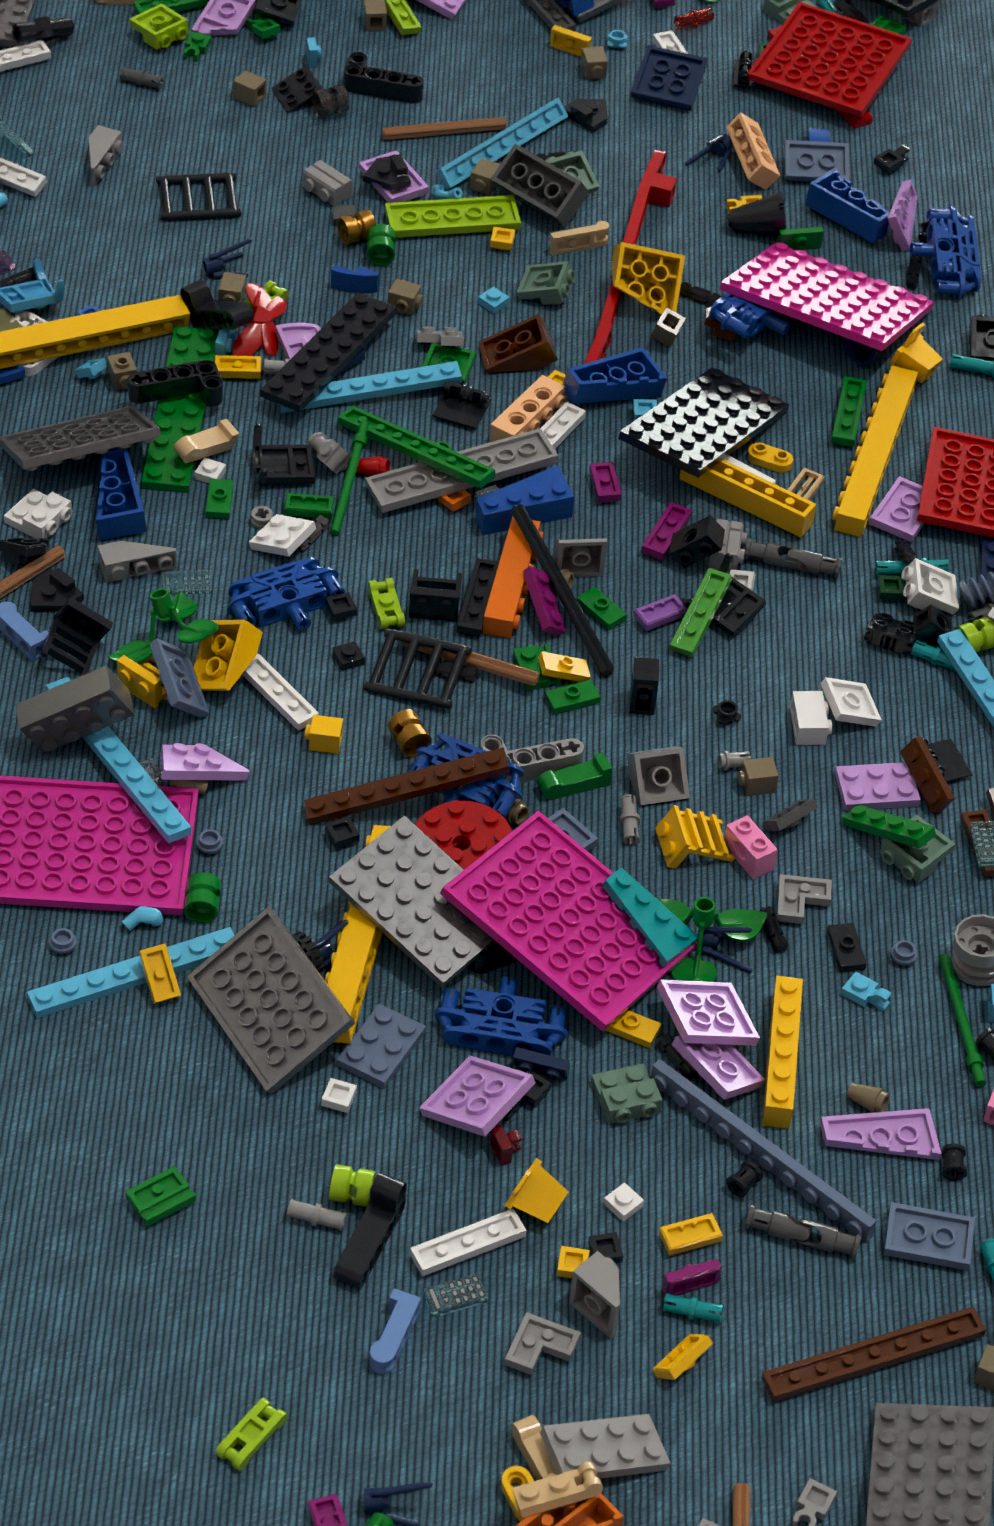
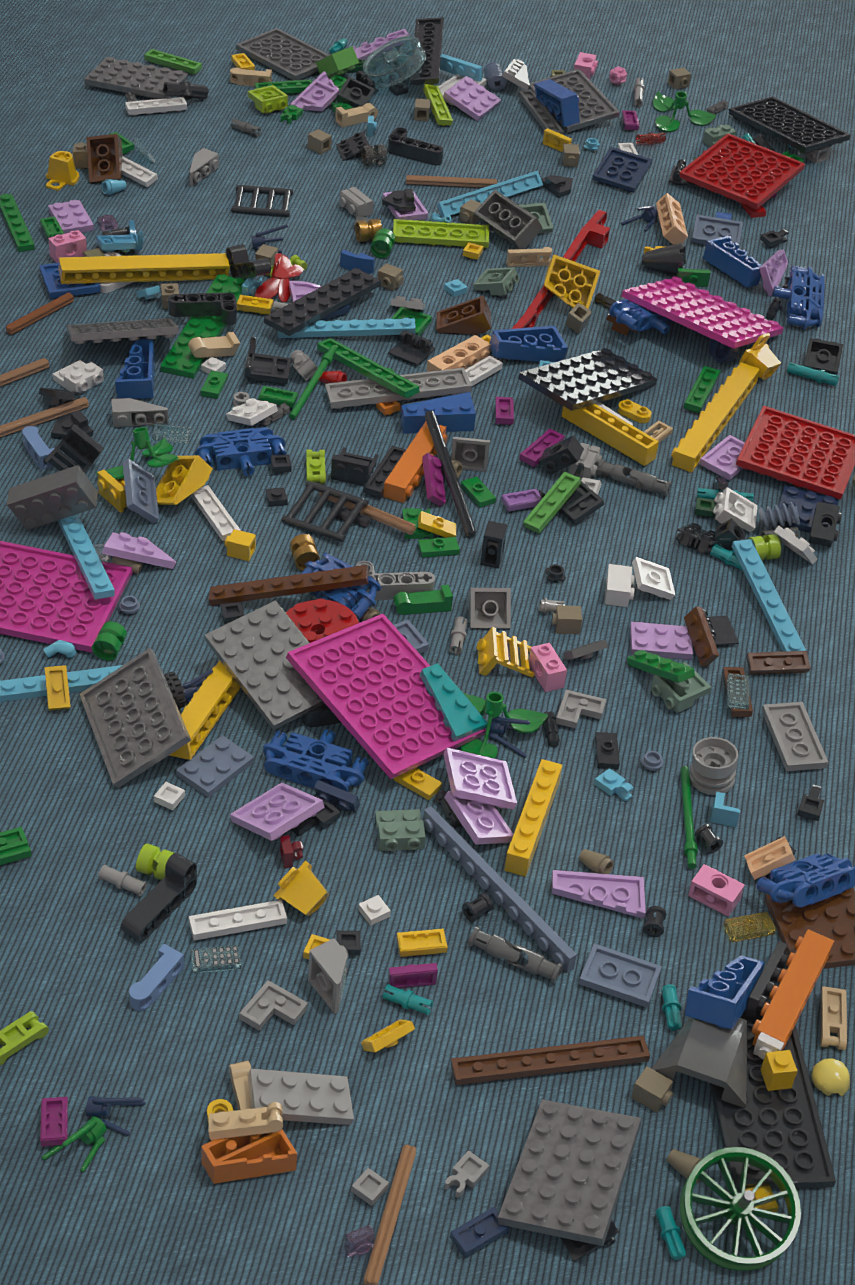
camera: 10 degrees right, 5 degrees down
(286, 36) = (355, 115): none -> tan leg

